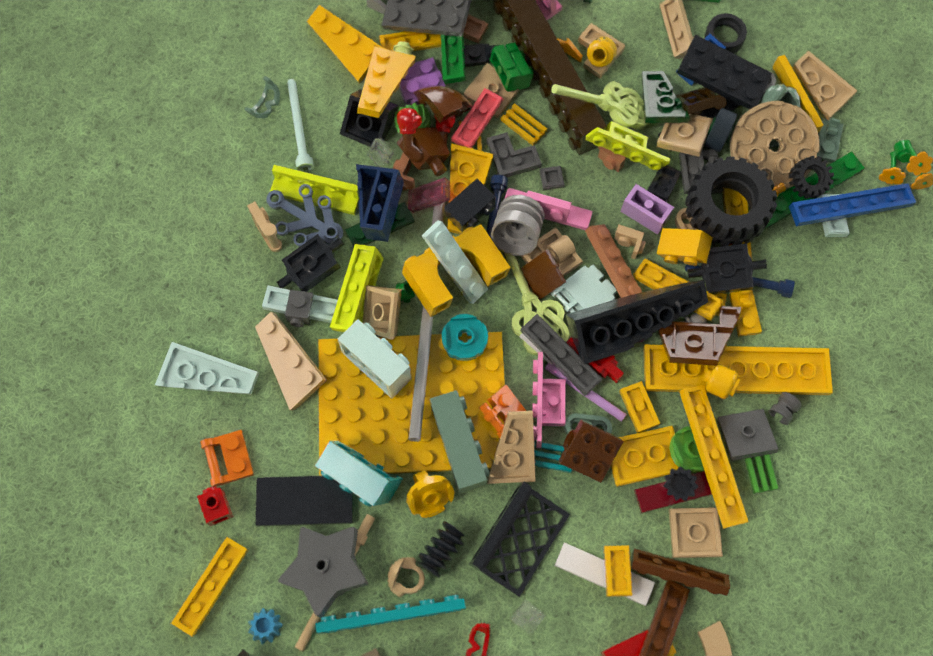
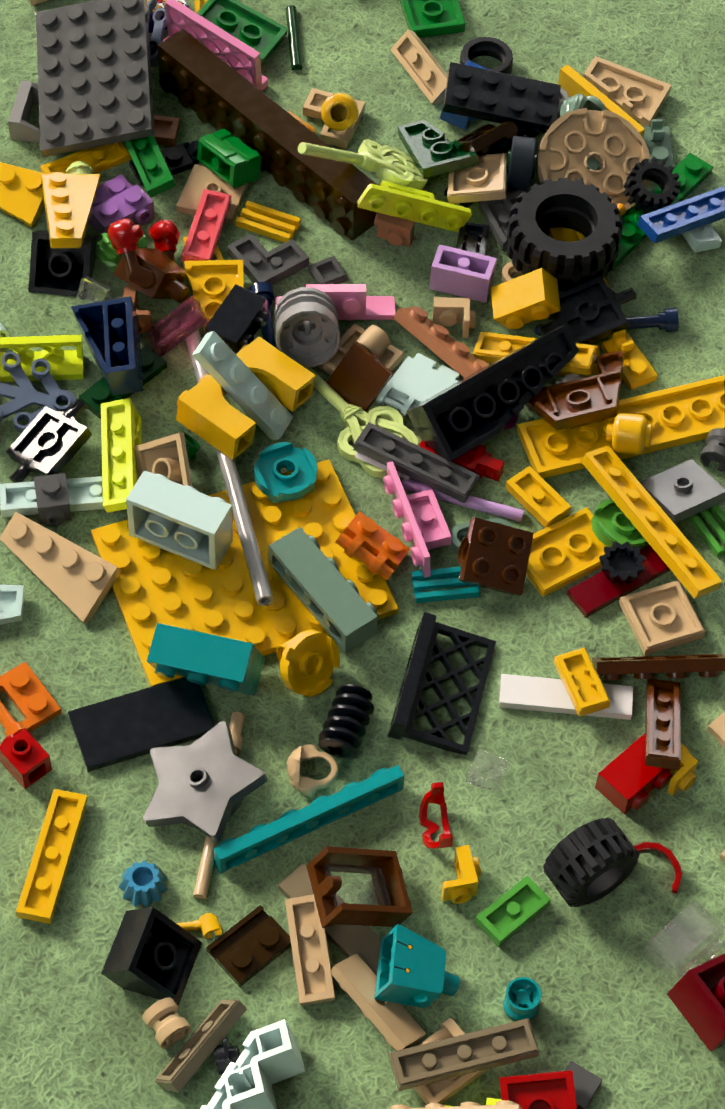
camera: 20 degrees left, 15 degrees down
(443, 101) = (157, 211): reddish brown brick -> none
(515, 451) = (401, 580): tan wing -> none

